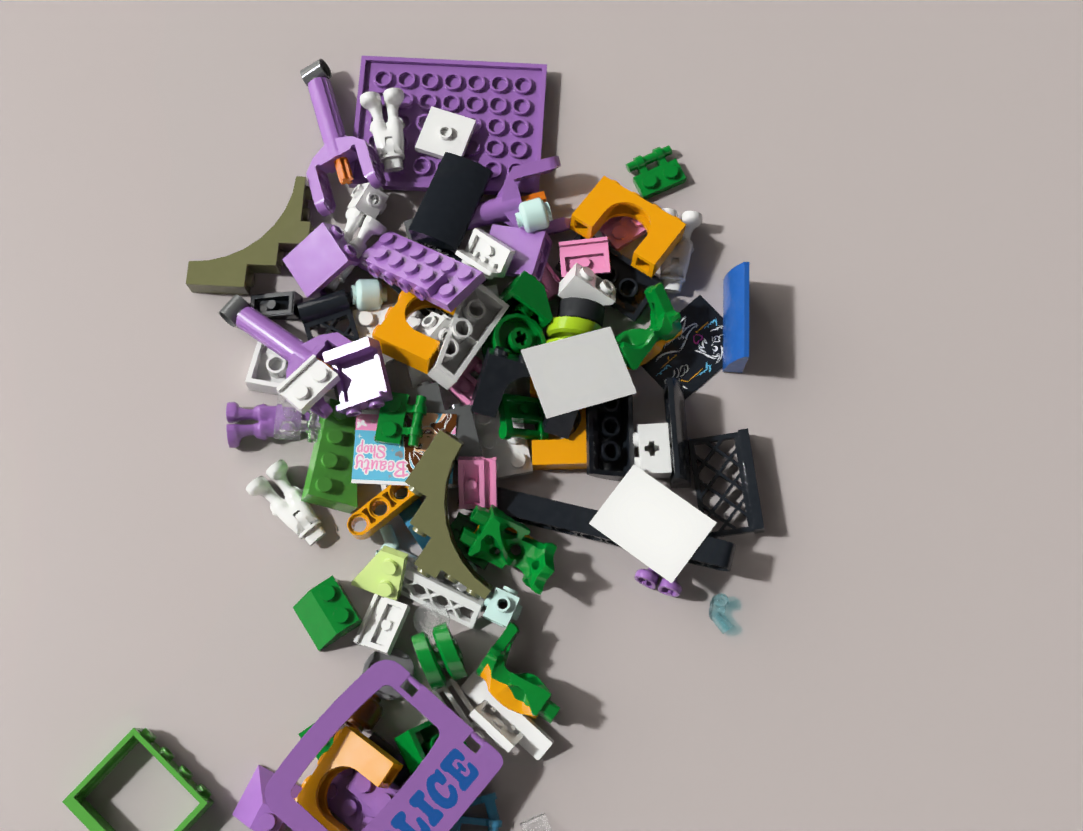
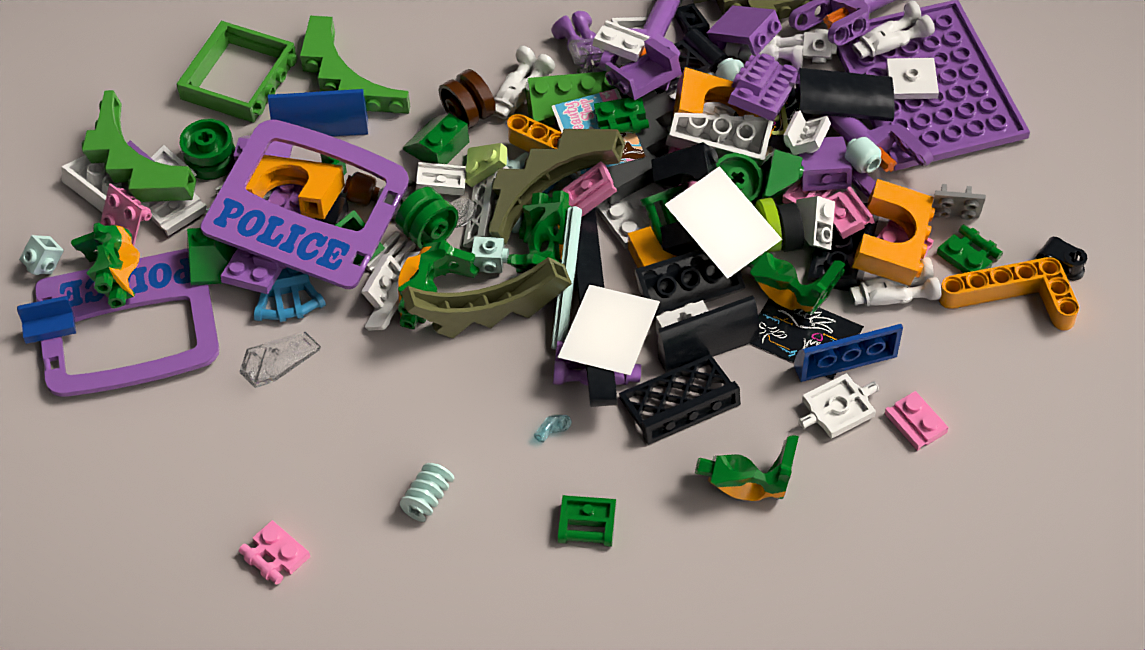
camera: 70 degrees right, 20 degrees down
(229, 679) = (321, 56): none -> bright green arch
(249, 730) = (324, 111): none -> blue slope
(296, 564) = (467, 98): none -> reddish brown wheel
(566, 541) = (569, 259): none -> light aqua axle
(568, 628) = (488, 306): none -> olive arch
(612, 153) = (958, 204): none -> light grey plate
(692, 101) = (1066, 255): none -> black piece
(706, 151) = (1014, 280): none -> light orange beam
(759, 756) = (425, 490): none -> light aqua piece
(784, 350) = (839, 405): none -> white plate
(818, 292) = (916, 420): none -> bright pink plate
(826, 613) = (587, 512): none -> green plate
(838, 469) = (743, 480): none -> green hips

